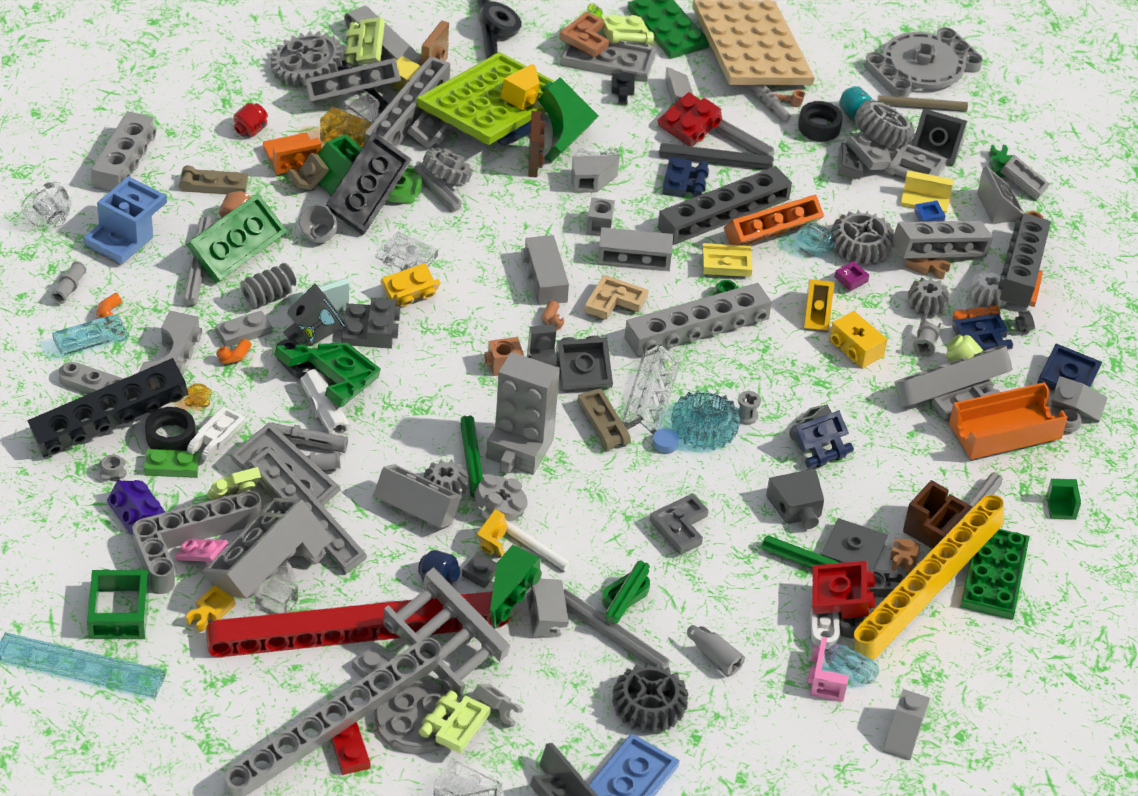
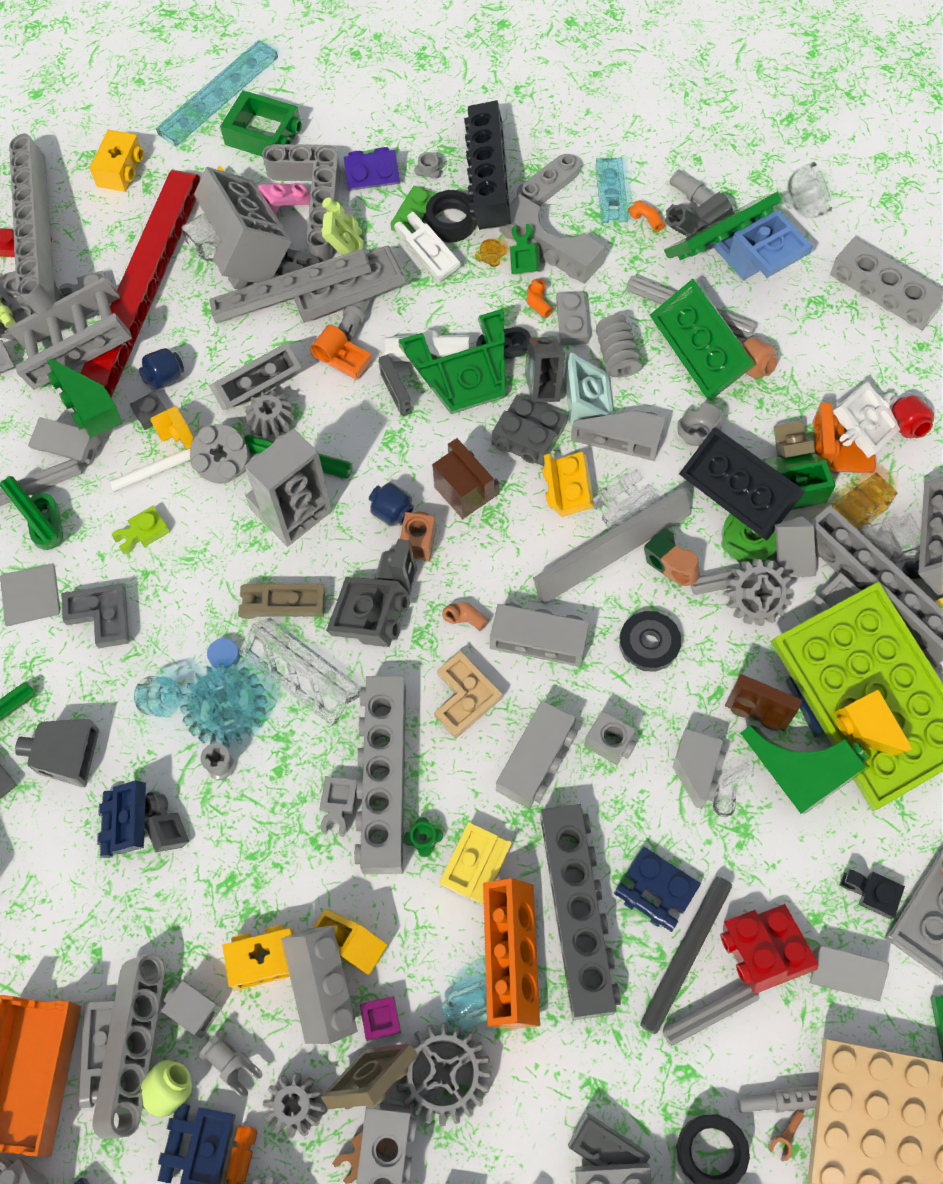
camera: 120 degrees right, 20 degrees up
(106, 271) = (691, 220): none -> dark grey piece
(124, 236) = (723, 227): none -> green tile
(197, 363) = (525, 254): none -> green plate
(212, 181) = (817, 359): dark tan plate -> none
(214, 703) = (116, 160): none -> yellow brick
(272, 133) = (867, 419): none -> white plate
(313, 438) = (396, 313): light grey pin -> none
(345, 263) = (627, 433): none -> light grey slope
(358, 457) = (339, 353): none -> orange plate
(373, 411) = (394, 385): none -> dark grey tile
(399, 141) = (796, 547): none -> light grey slope
(445, 337) = (463, 480): none -> reddish brown plate
(446, 214) = (671, 560): none -> leg
(452, 250) = (611, 546): none -> light grey tile
(485, 377) = (390, 504): none -> dark blue head
(516, 209) = (651, 624): none -> black tile
(592, 528) = (144, 528): none -> lime plate
(690, 583) = (29, 594): none -> light grey sticker
(724, 454) = (157, 696): none -> clear light blue head
(732, 339) = (337, 799): none -> light grey plate
(856, 292) = (319, 985): none -> light grey brick
(890, 252) = (370, 1077): none -> dark tan plate
(911, 359) = (190, 1008): none -> light grey brick

